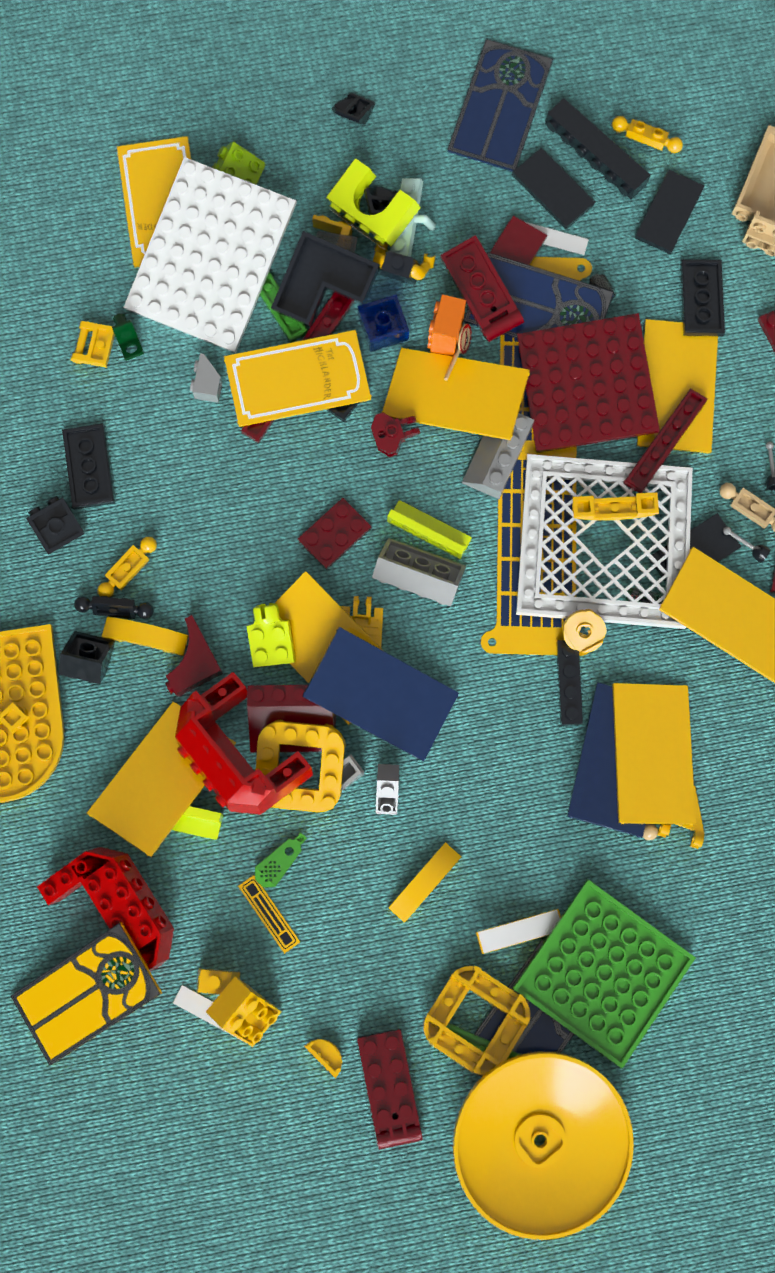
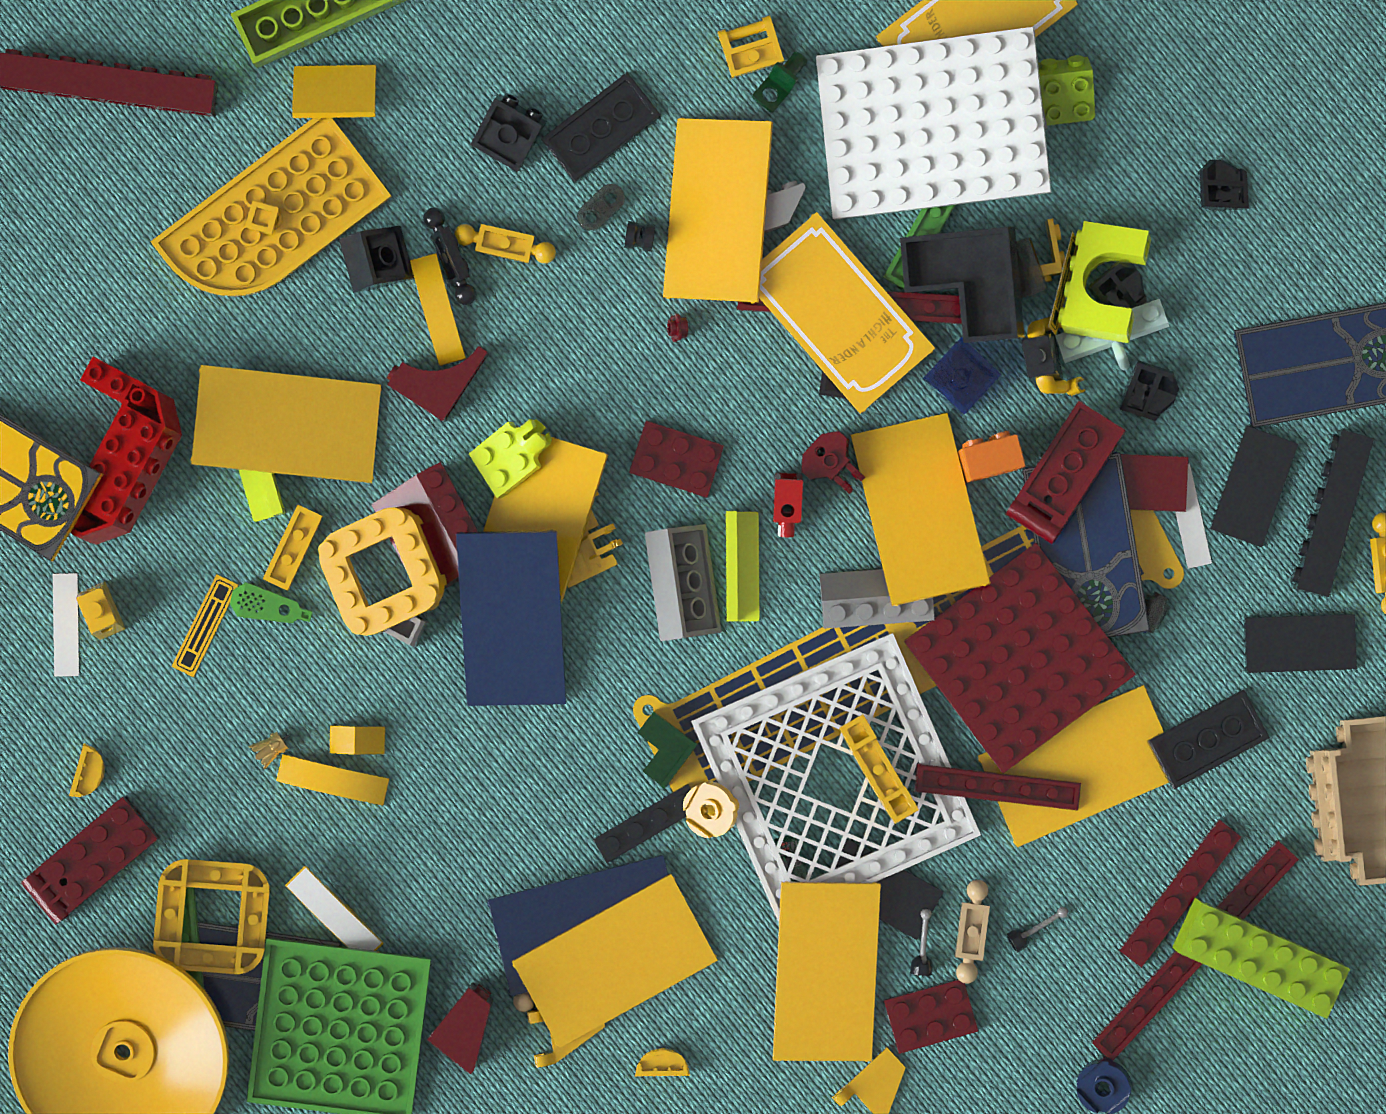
camera: 65 degrees right, 10 degrees up
(140, 493) = (598, 205): none -> clear smoke plate
(173, 477) = (633, 236): none -> black wheel
(186, 418) = (718, 210): none -> yellow piece
(219, 760) = (338, 480): red wedge -> none
(243, 1012) = (82, 658): yellow slope -> none
(248, 485) = (677, 327): none -> dark red plate
(254, 830) = (292, 547): none -> yellow plate
(379, 912) = (270, 748): none -> pearl gold piece
(387, 789) = (412, 682): light grey slope -> none
(395, 473) = (787, 490): none -> red torso
(406, 850) = (357, 740): none -> yellow slope
(456, 217) = (1149, 391): none -> black slope
(463, 346) = (987, 485): tan piece -> none
(528, 637) = (672, 745): none -> dark green panel
(648, 880) = (464, 1027): none -> dark red slope
(740, 760) = (662, 1063): none -> yellow plate

